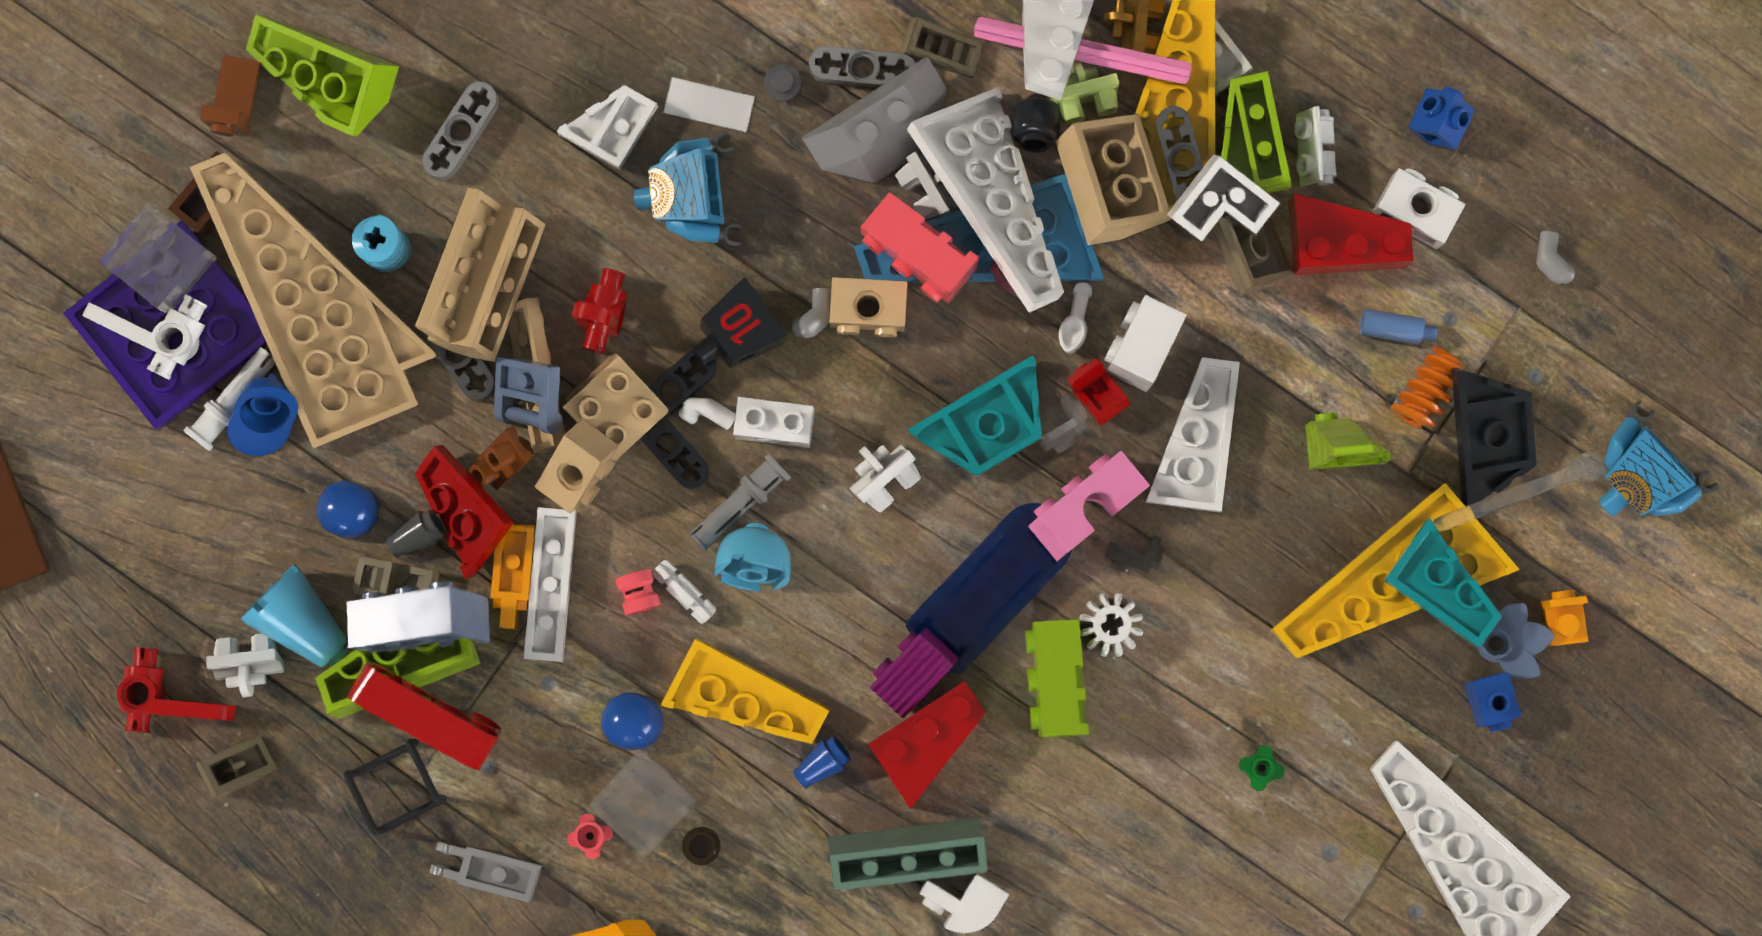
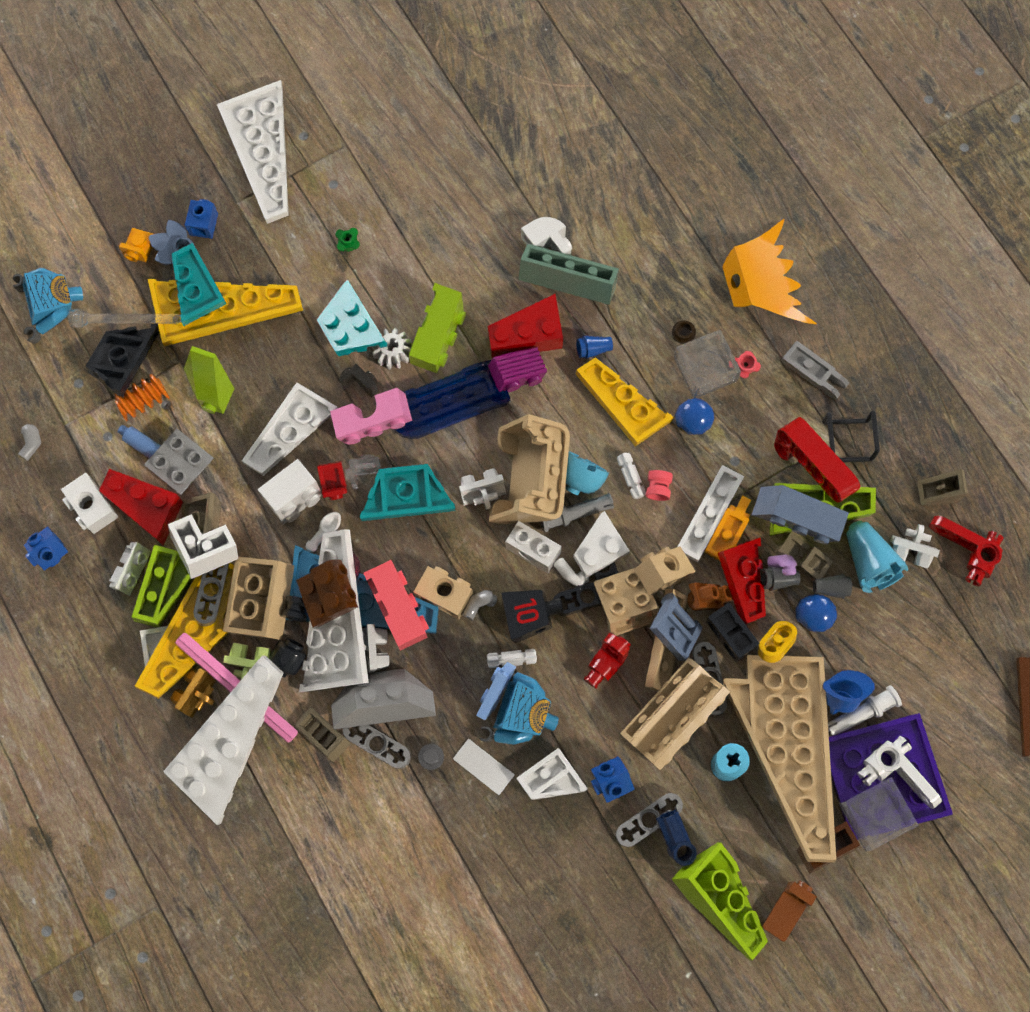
camera: 155 degrees left, 10 degrees down
(335, 555) = (833, 586): none -> dark grey cone
(384, 438) = (773, 645): none -> yellow plate
(412, 118) = (675, 837): none -> dark blue piece
(416, 557) = (785, 561): none -> lavender arm
(448, 423) = (732, 632): none -> black brick
(529, 155) = (611, 779): none -> blue brick
(681, 463) = (600, 547): none -> white wing
(735, 191) = (493, 695): none -> light blue plate
(735, 260) = (514, 657): none -> white axle
(814, 521) = (537, 472): none -> tan windscreen
(1017, 214) = (327, 592): none -> reddish brown plate
(1054, 186) = (295, 609): none -> black wheel
(1190, 633) = (349, 323): none -> wing
(1325, 320) = (178, 461): none -> light grey hinge

